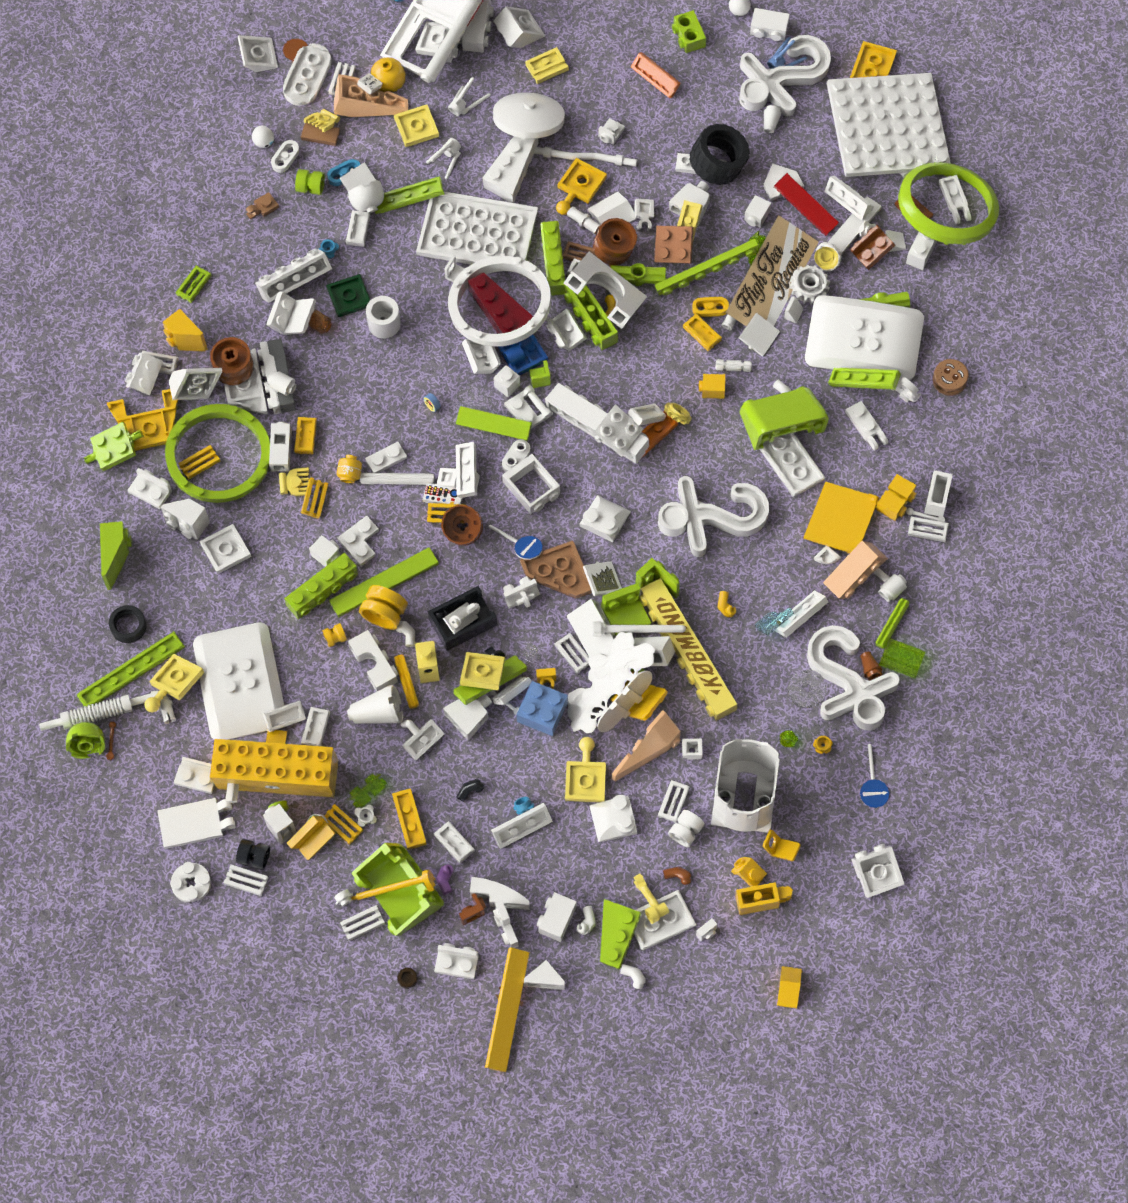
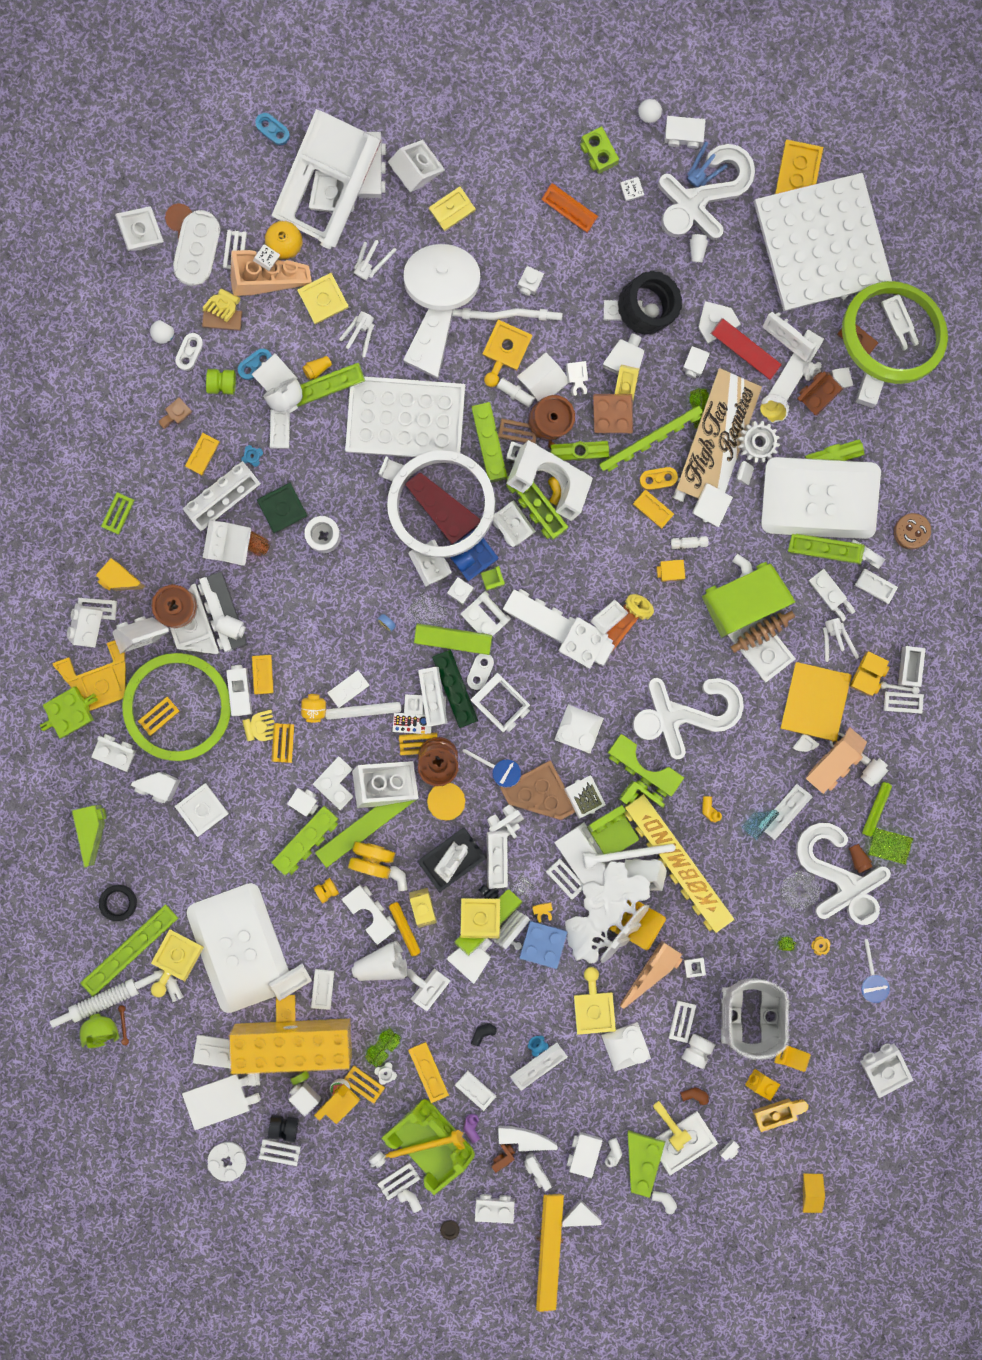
camera: 15 degrees left, 20 degrees up
(282, 241) = (202, 454): none -> yellow plate
(373, 942) = (411, 1198): none -> white arm
(401, 180) = (316, 367): none -> yellow cone
(406, 542) = (384, 784): none -> white slope
(465, 568) = (446, 801): none -> yellow tile
(489, 468) = (455, 689): none -> dark green plate
(507, 623) = (497, 859): none -> white plate
(646, 541) = (625, 752): none -> lime arch
(715, 67) = (631, 189): none -> white tile
(794, 445) = (762, 631): none -> medium nougat piece
(866, 454) = (836, 628): none -> white plant
(910, 421) = (876, 586): none -> white plate

